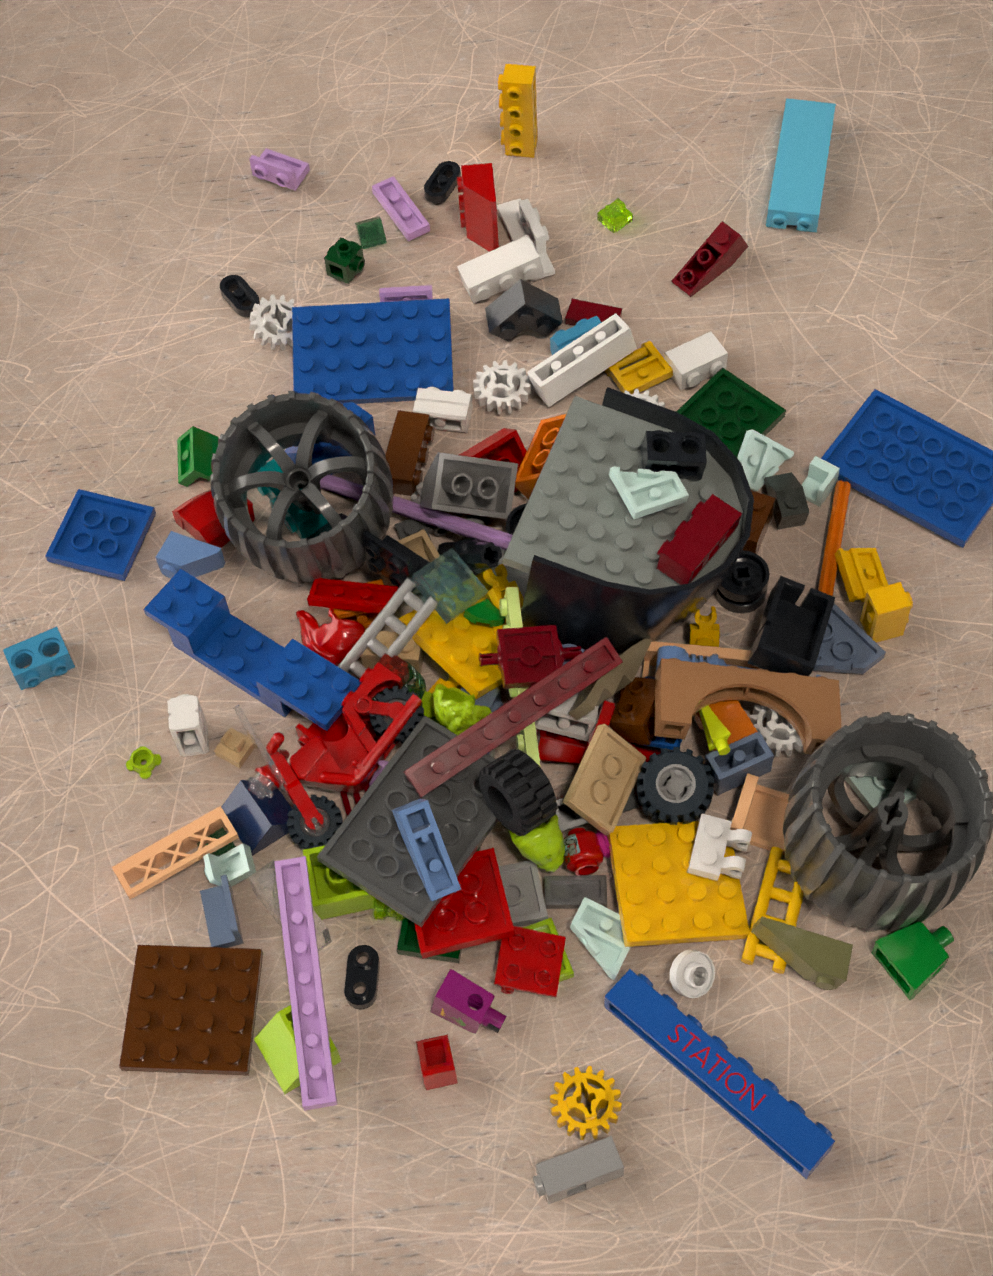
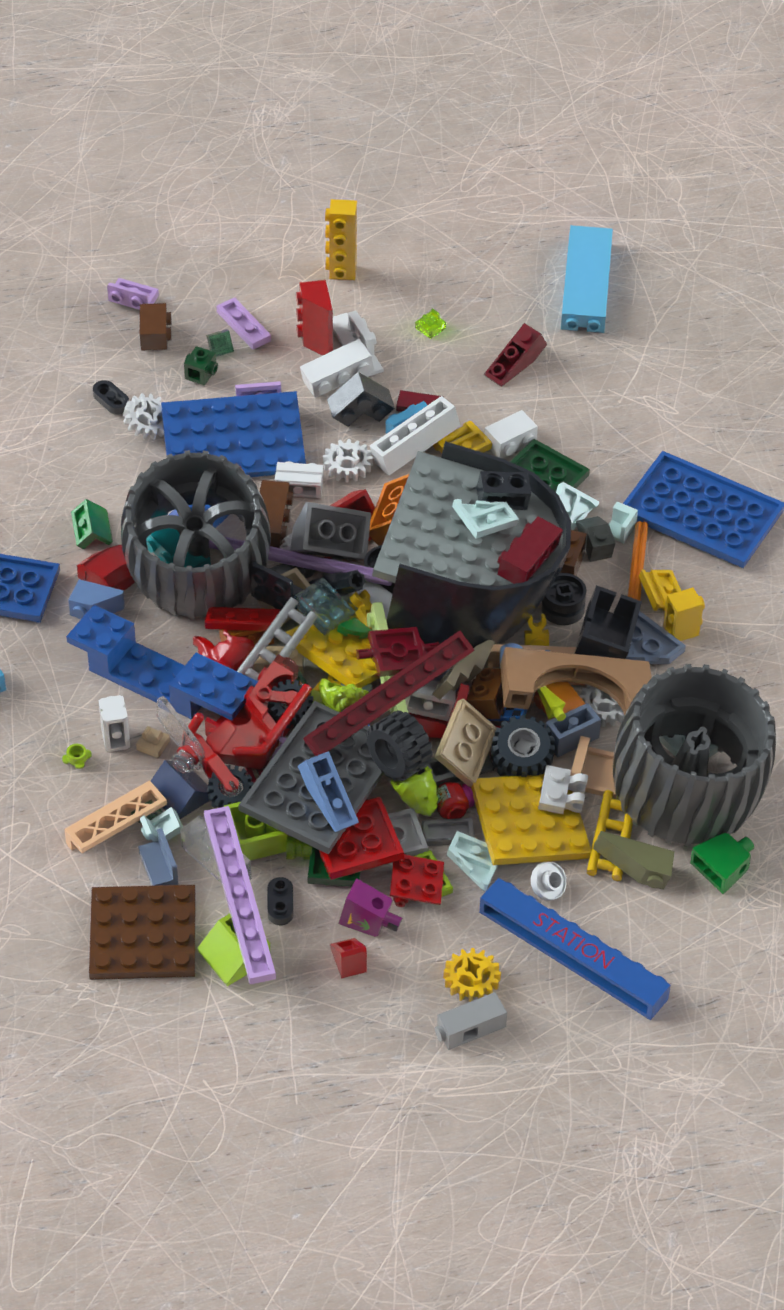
camera: 10 degrees left, 10 degrees down
(297, 210) = (154, 326): none -> reddish brown brick
(442, 182) = (277, 301): black plate -> none

